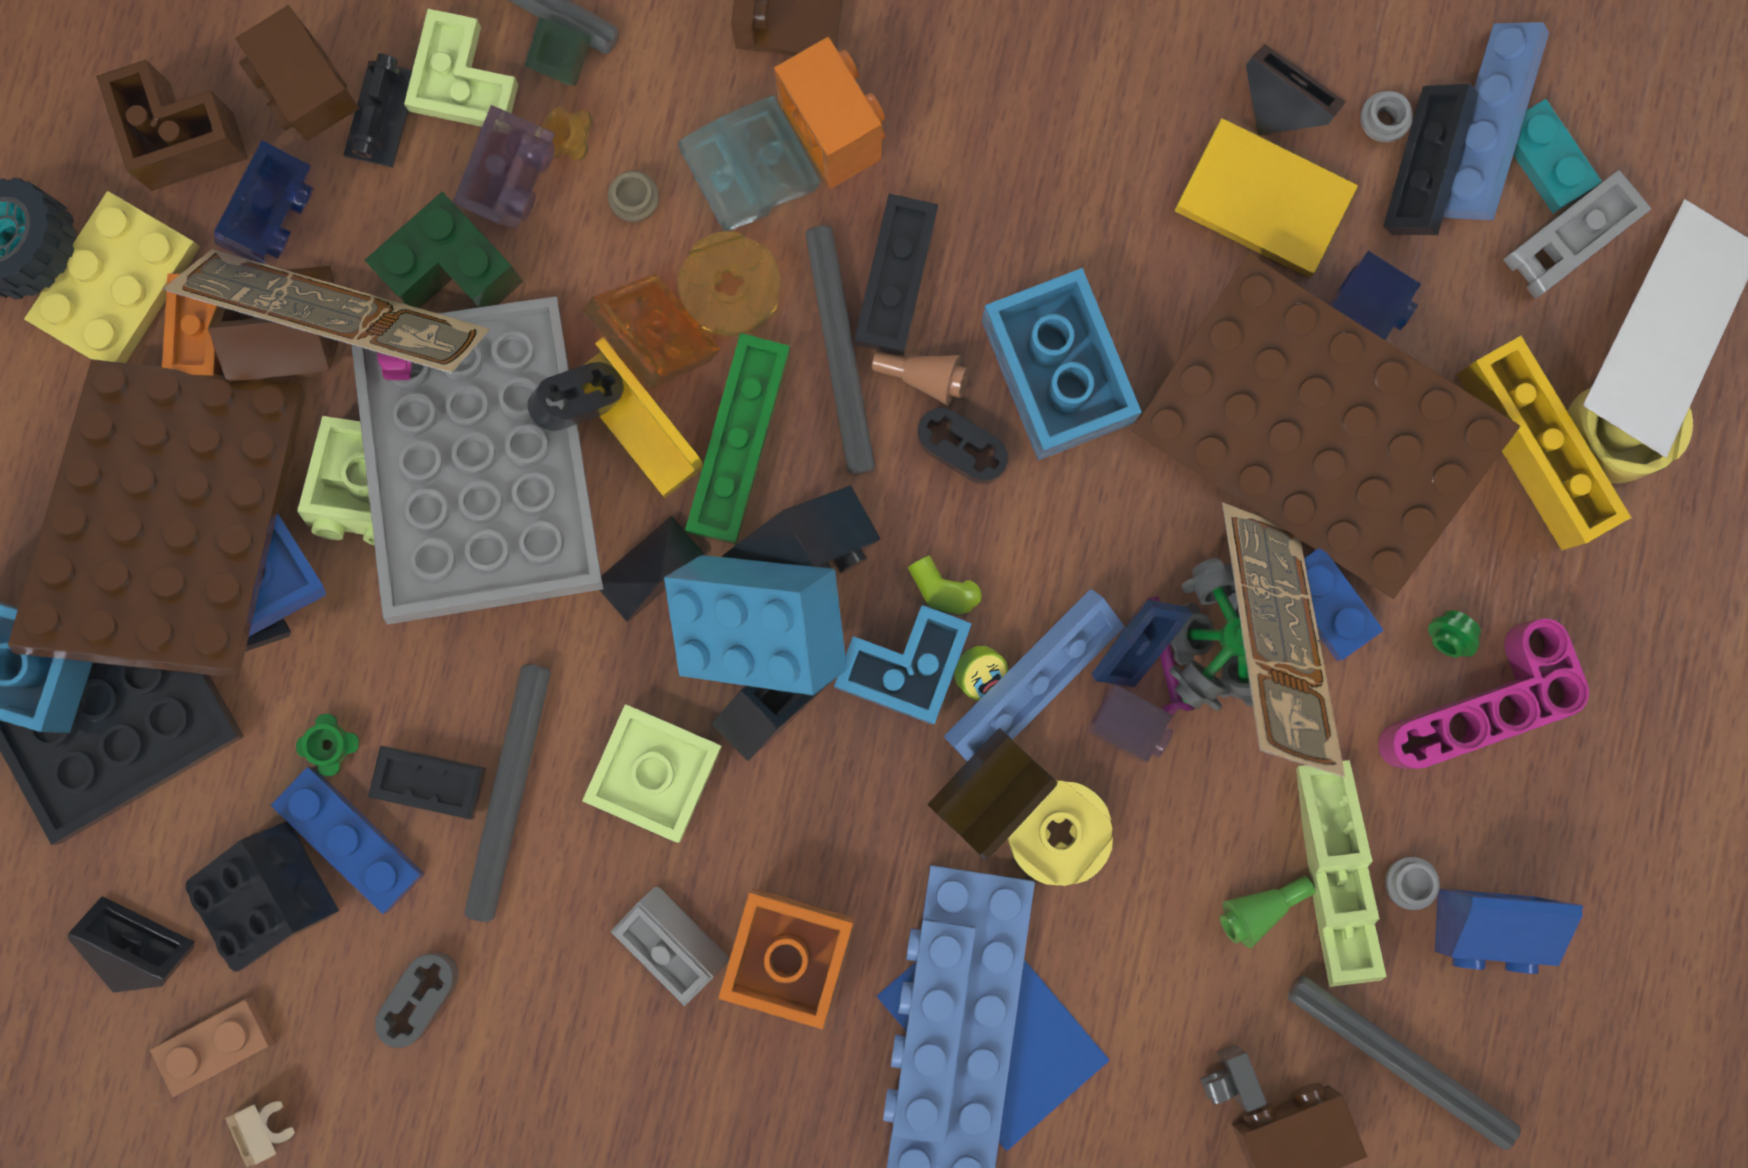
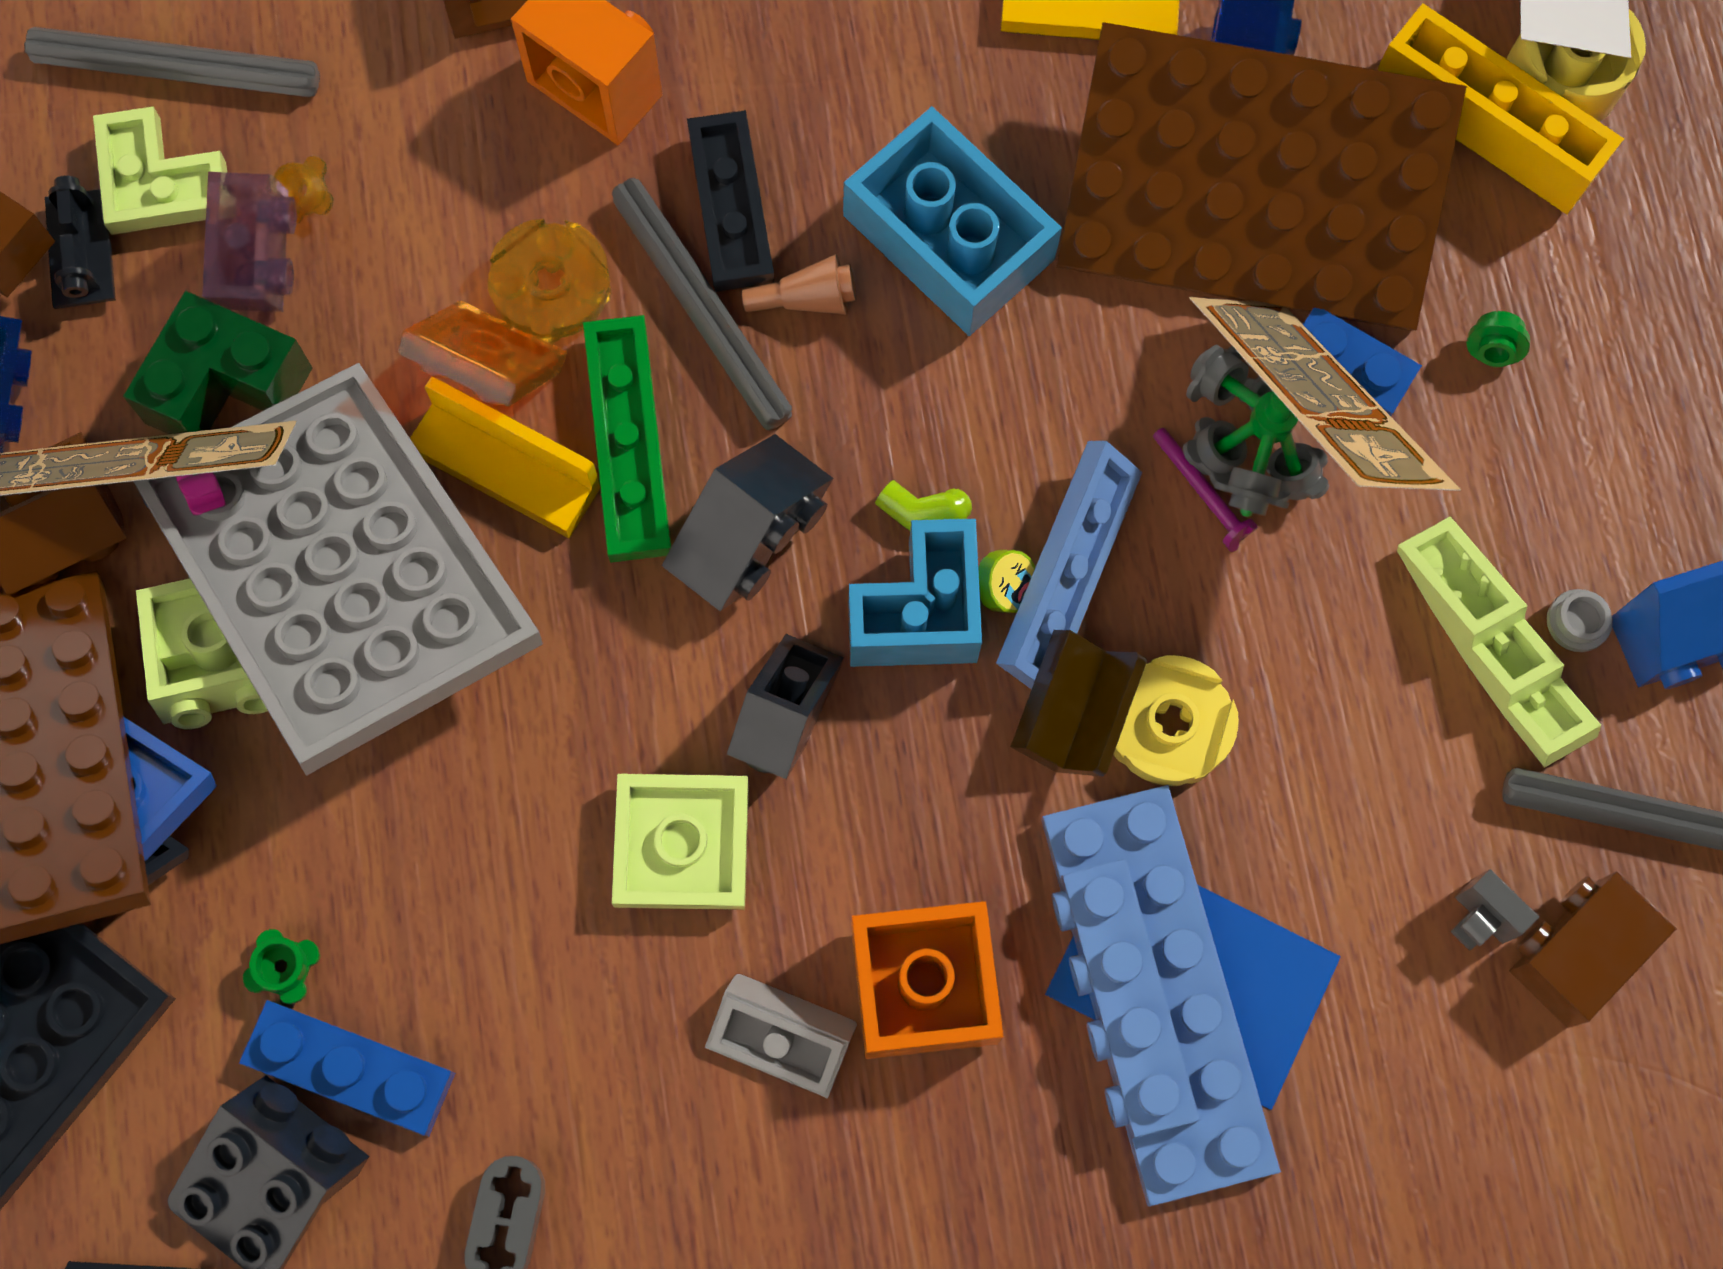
camera: 25 degrees left, 10 degrees down
(427, 782) = (418, 959): black plate -> none
(507, 793) = (519, 937): dark grey axle -> none
(557, 51) = (257, 108): clear green plate -> none
(579, 405) = (415, 440): black beam -> none
(633, 196) = (403, 229): dark tan plate -> none
(641, 572) = (583, 620): black slope -> none
(748, 163) = (518, 147): clear light blue slope -> none
(756, 623) = (734, 610): dark azure brick -> none
(968, 435) = (879, 352): black beam -> none
(1131, 725) = (1197, 570): clear purple brick -> none
(1141, 643) = (1169, 474): dark blue slope -> none
(1254, 915) = (1424, 726): bright green cone -> none
(1481, 710) = (1566, 409): dark pink beam -> none

